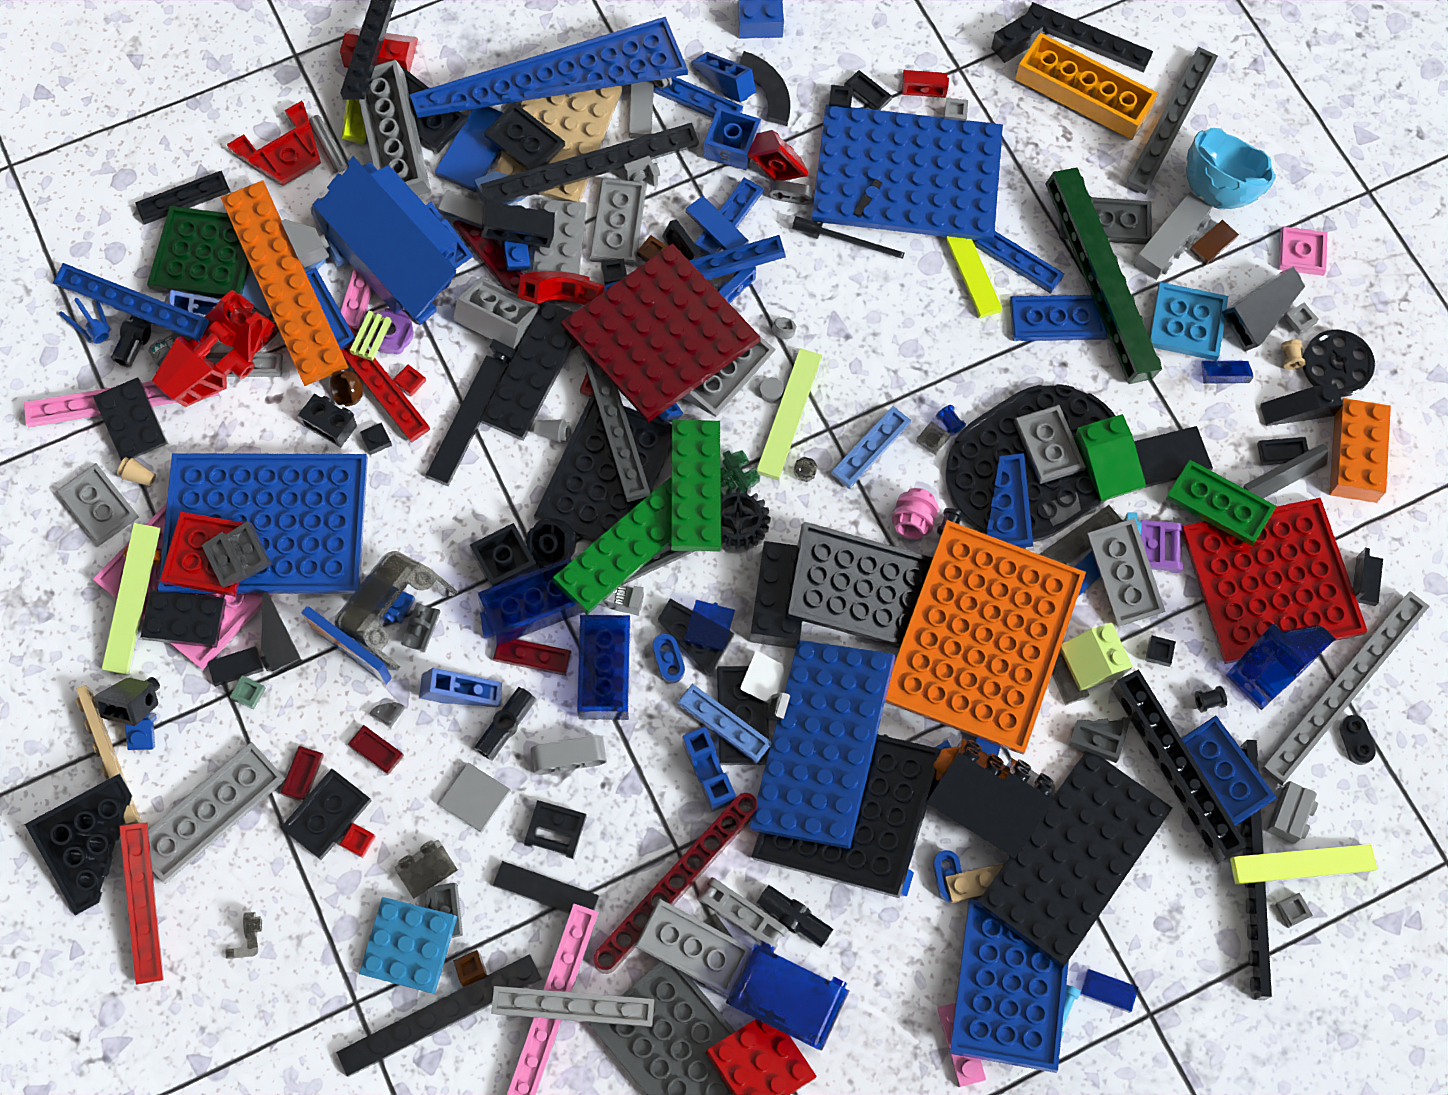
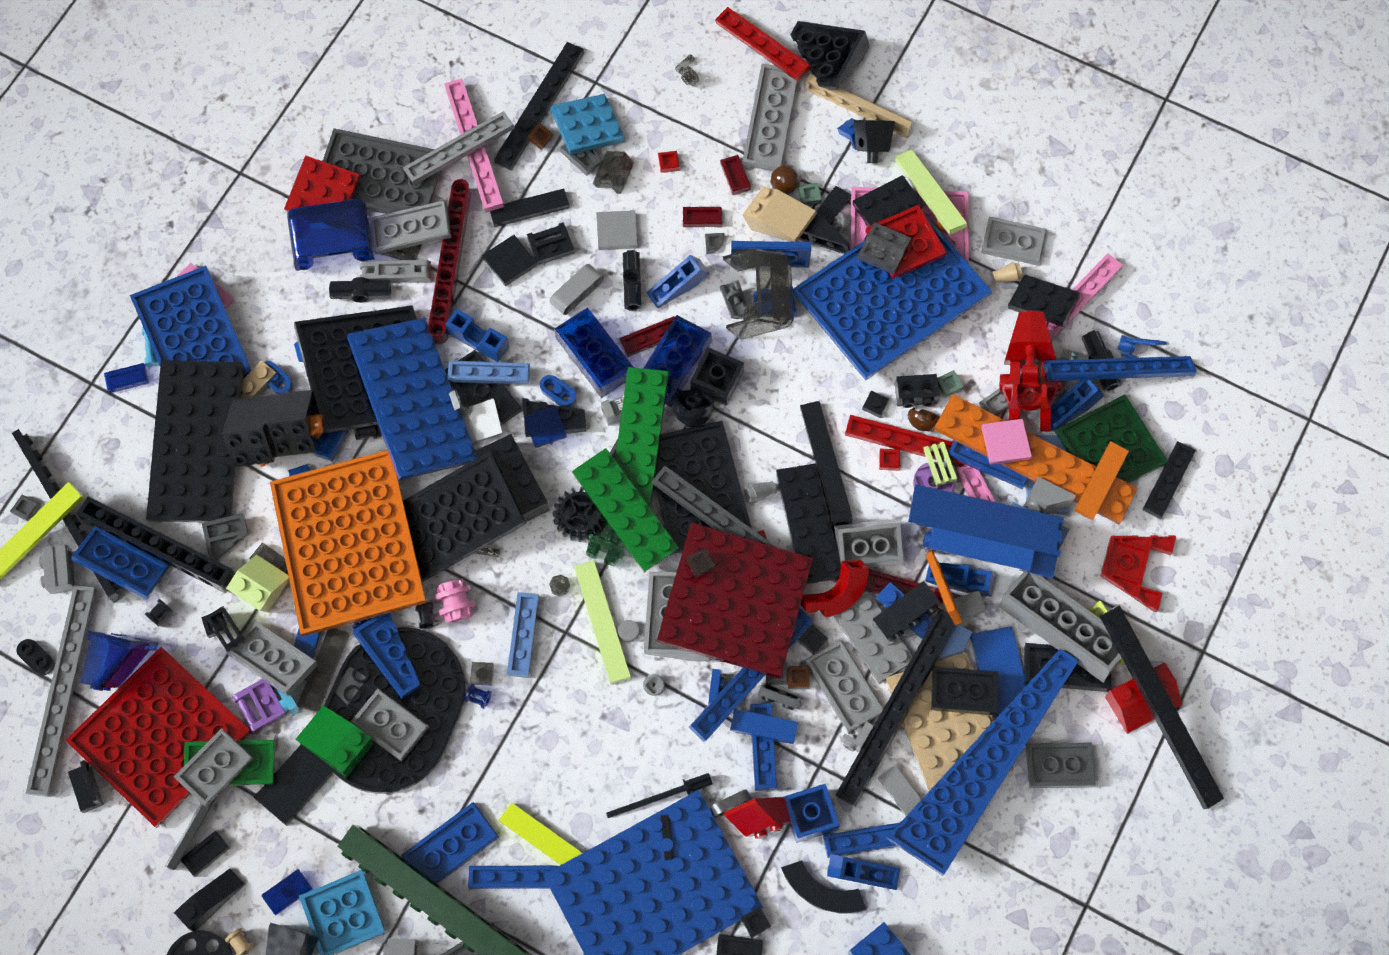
camera: 145 degrees right, 0 degrees up
(244, 637) = (841, 222): none -> light grey plate
(247, 216) = (1101, 481): none -> orange tile
(257, 725) = (786, 179): none -> reddish brown hair
(290, 406) = (949, 383): none -> sand green plate
(297, 301) = (1006, 441): none -> bright pink tile
(301, 679) = (778, 215): none -> tan slope
(326, 814) = (699, 161): black plate -> none
(327, 143) = (1109, 593): light grey axle -> none
(471, 214) = (944, 588): none -> orange tile
(493, 44) = (1060, 765): none -> dark grey plate
(612, 842) = (509, 260): none -> black tile
(670, 367) = (700, 563): none -> clear smoke plate
(1145, 631) = (234, 642): none -> black tile
(1239, 501) = (213, 767): none -> light grey tile
(1360, 450) = (141, 890): orange brick -> none

